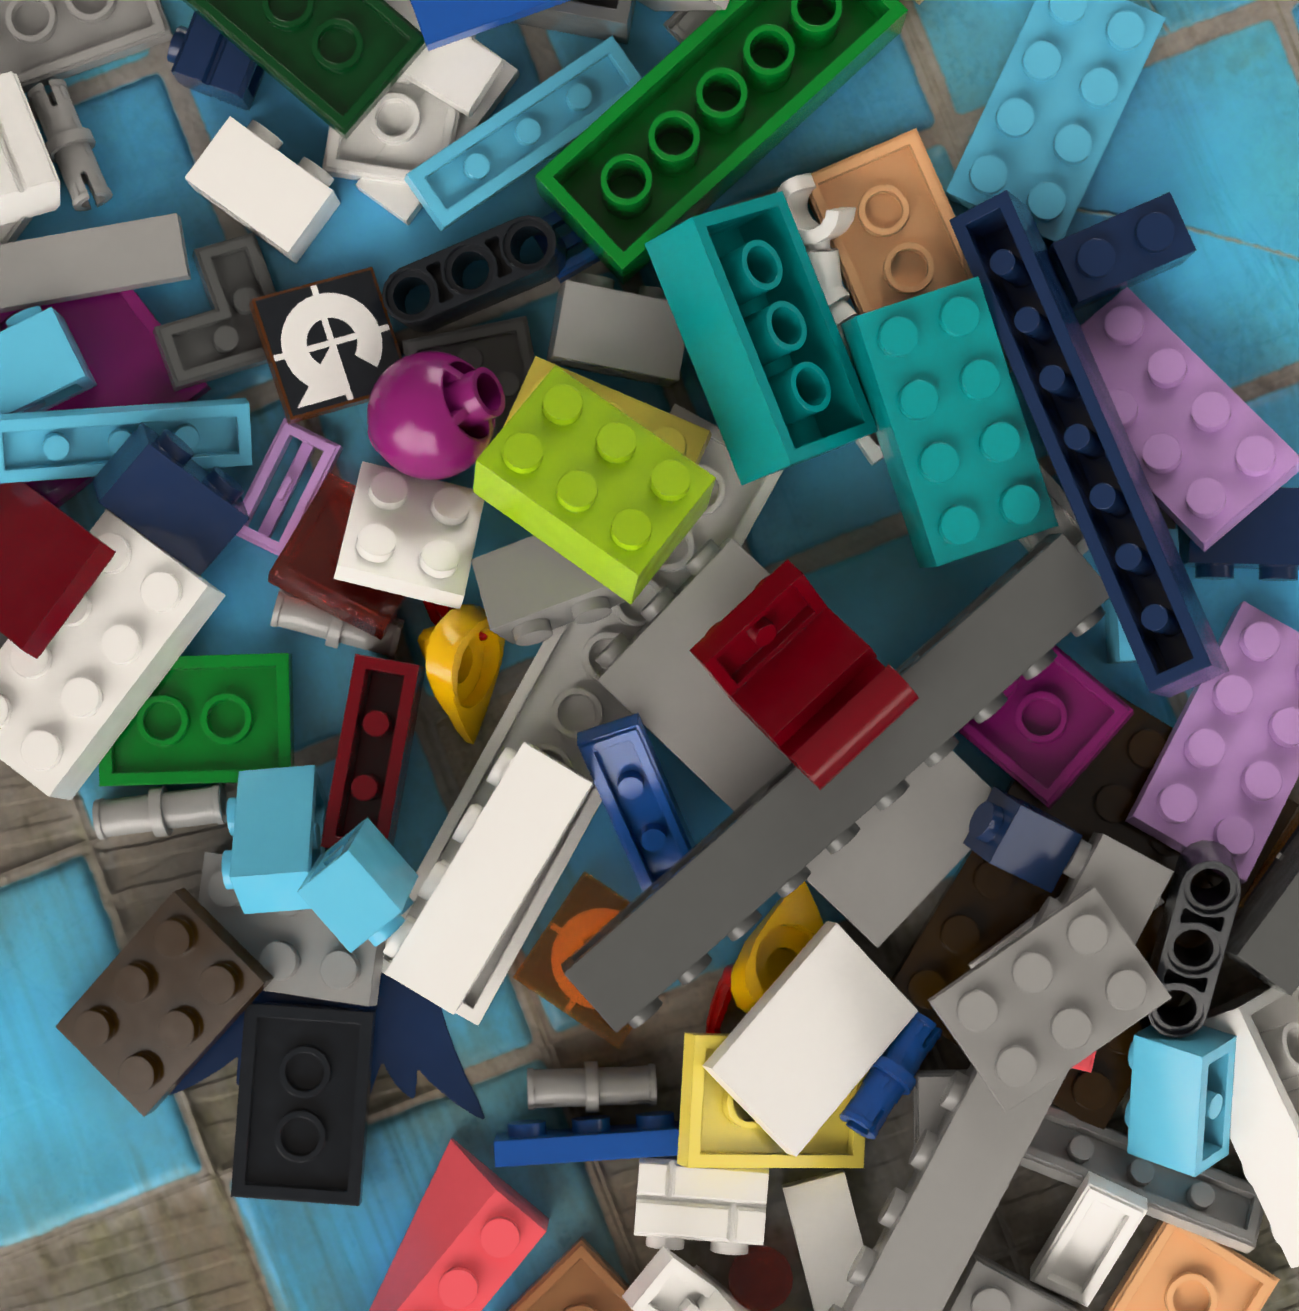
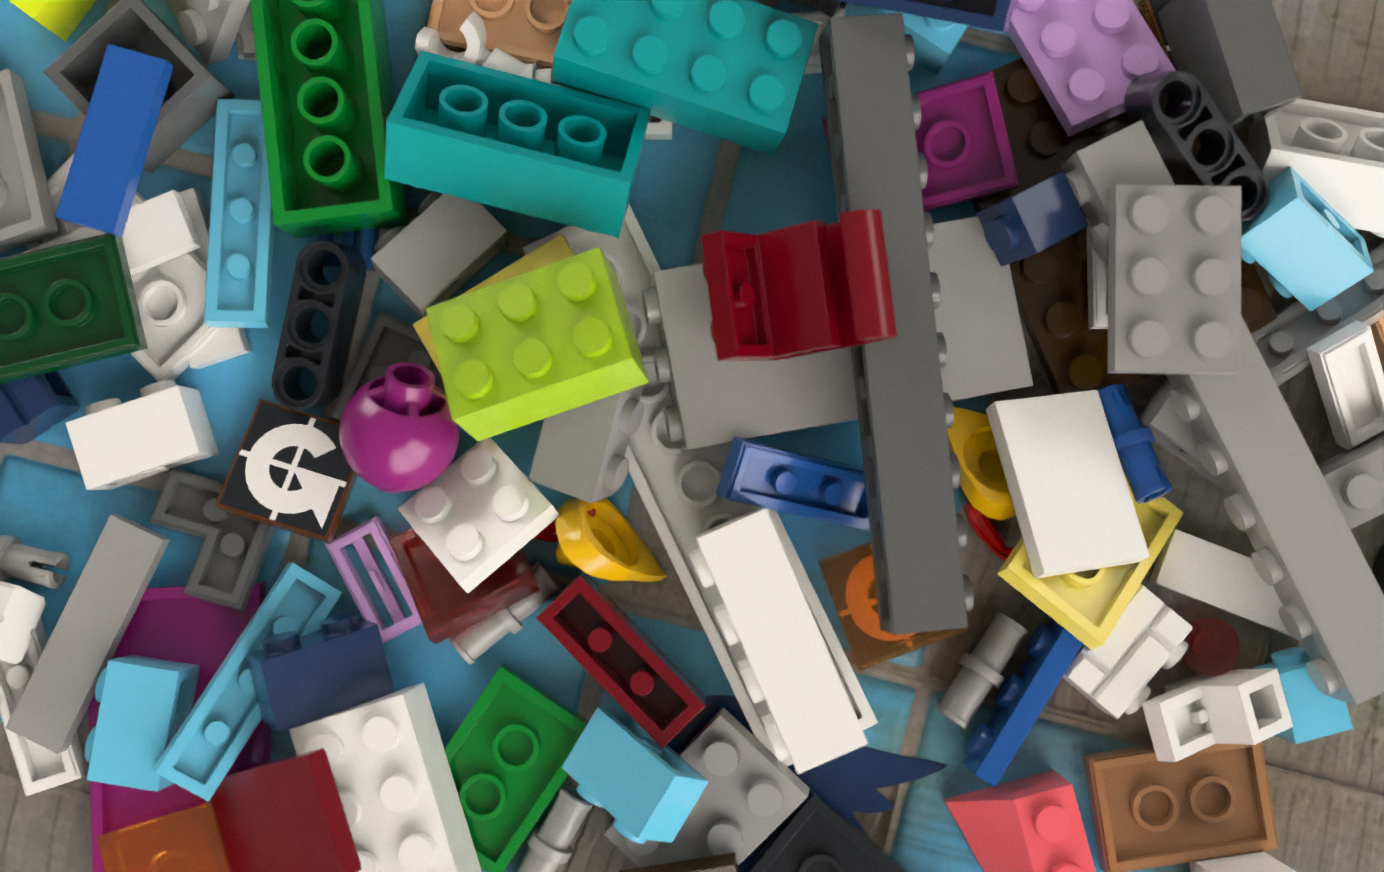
camera: 55 degrees left, 0 degrees up
(360, 887) = (718, 745): medium azure brick -> none

